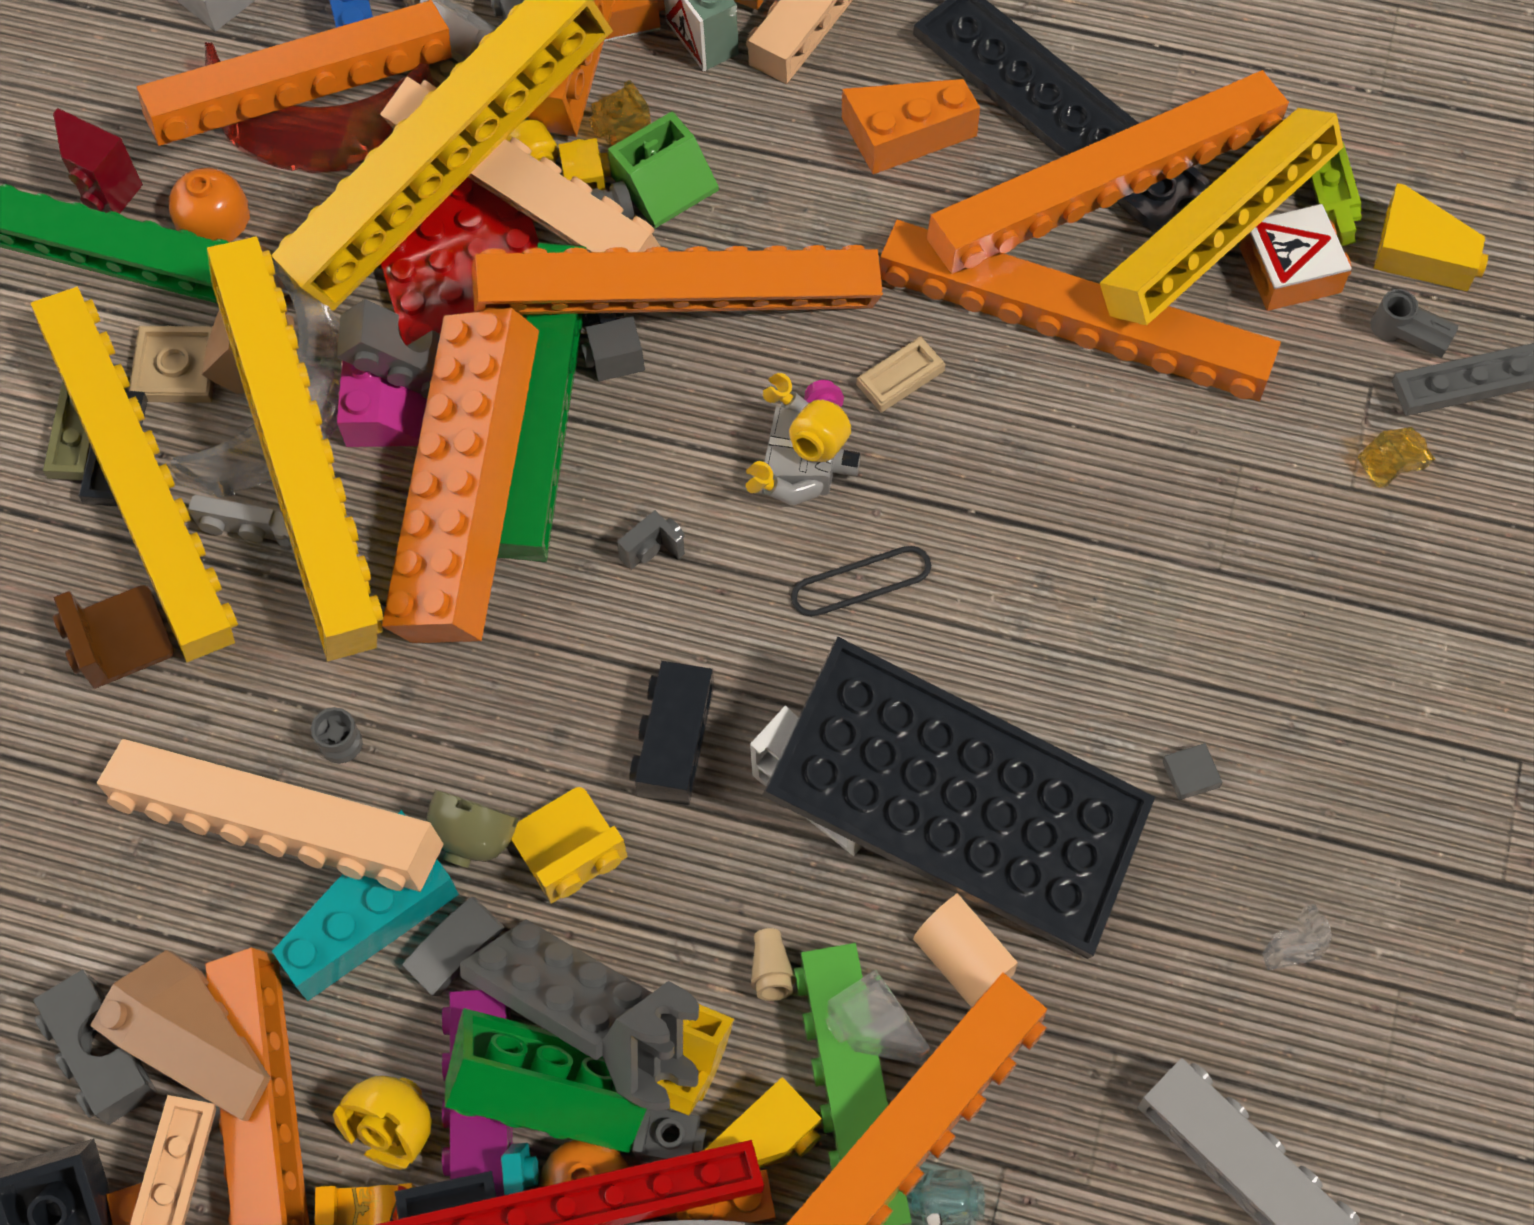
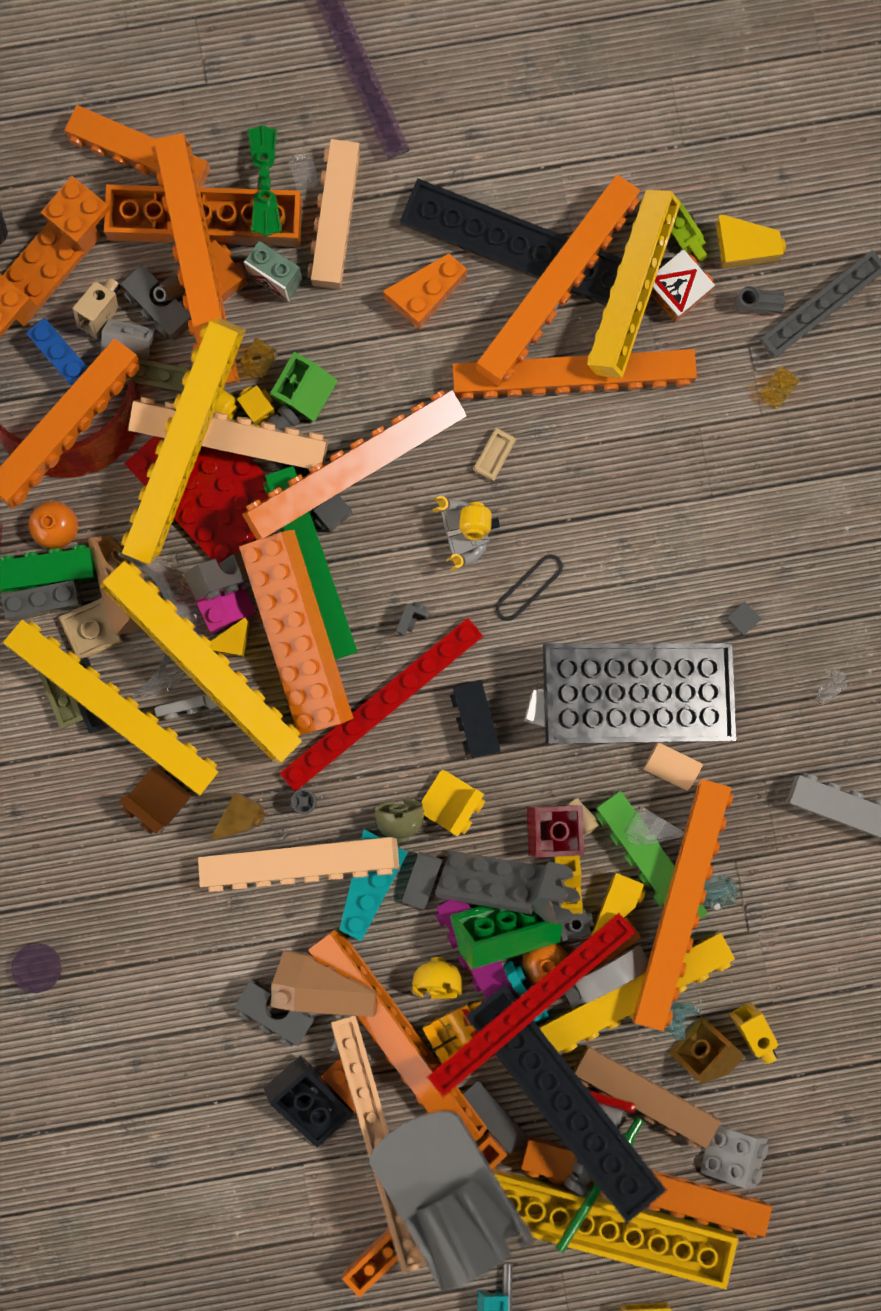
camera: 30 degrees left, 20 degrees up
(131, 291) = (42, 601): none -> dark grey brick
(216, 707) = (240, 816): none -> pearl gold slope
(369, 457) = (233, 640): none -> yellow slope
(540, 649) = (381, 704): none -> red plate
(716, 958) = (555, 830): none -> dark red slope
(824, 390) = (461, 491): dark pink plate -> none

